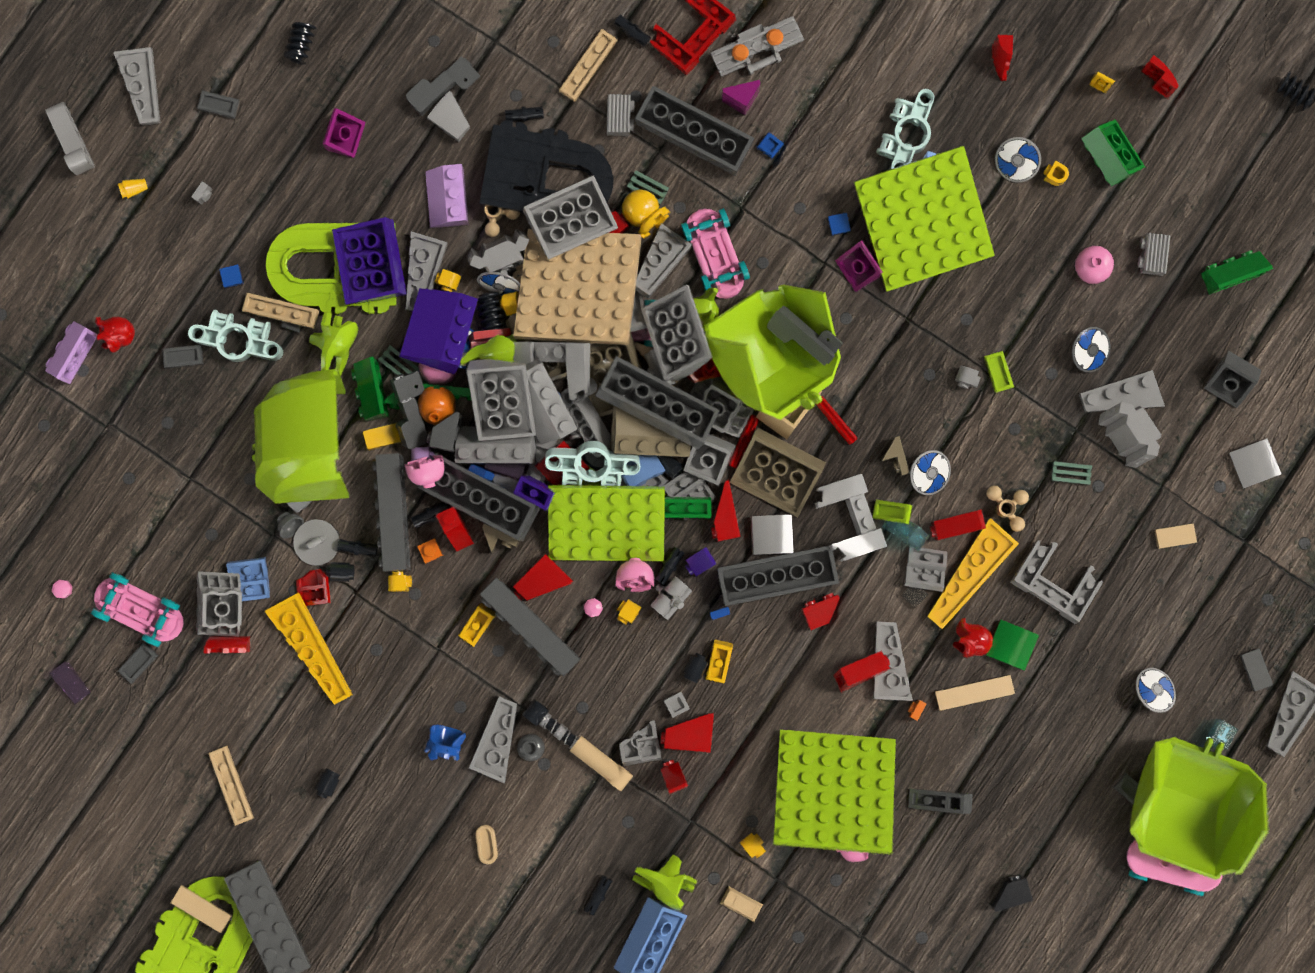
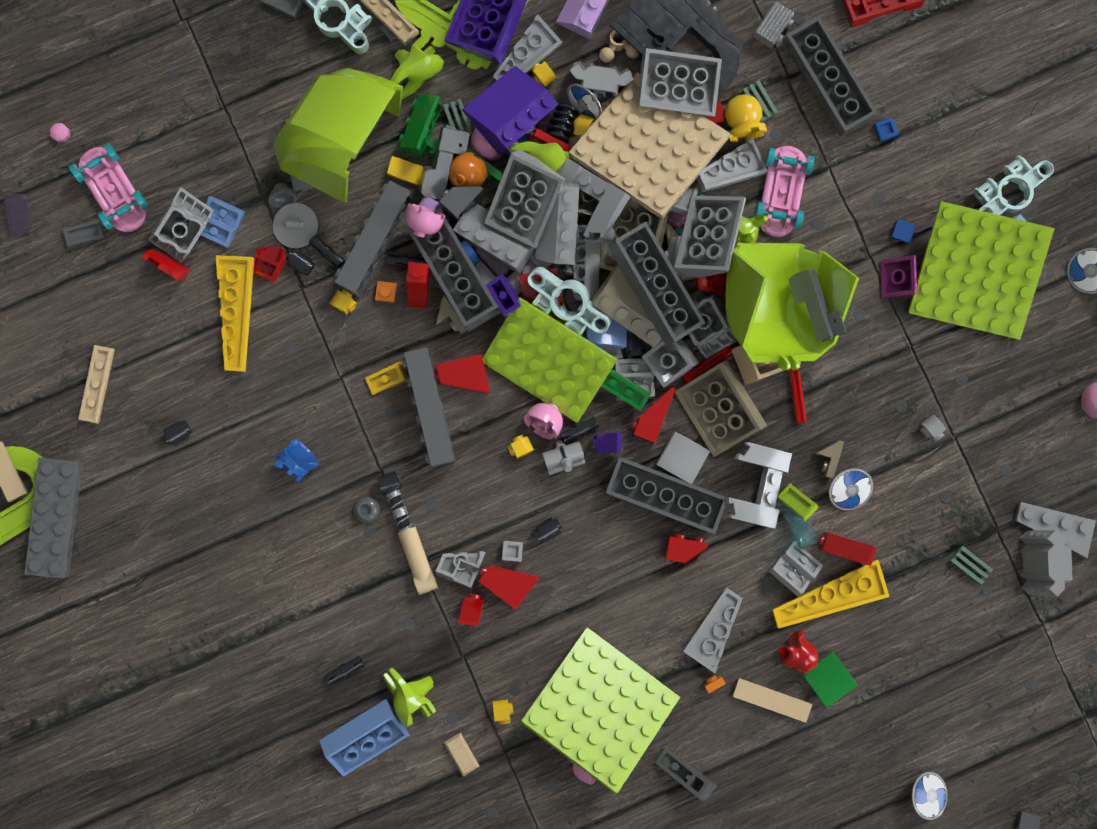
camera: 25 degrees right, 0 degrees up
(486, 844) = (278, 568): tan tile -> none
(494, 747) = (336, 490): light grey wing -> none
(593, 607) = (493, 425): bright pink tile -> none
(719, 613) = (597, 496): blue tile -> none
(719, 661) = (571, 537): yellow slope -> none
(741, 96) = (888, 71): magenta slope -> none
(752, 41) = (927, 32): light grey piece -> none
(861, 671) = (687, 621): red slope -> none
(998, 372) = (962, 440): lime tile -> none
(1020, 497) = (915, 558): tan piece -> none
(1071, 605) = (900, 678): light grey wedge -> none
(1091, 349) = (1053, 470): shield -> none
(1175, 536) = (1027, 674): tan tile -> none

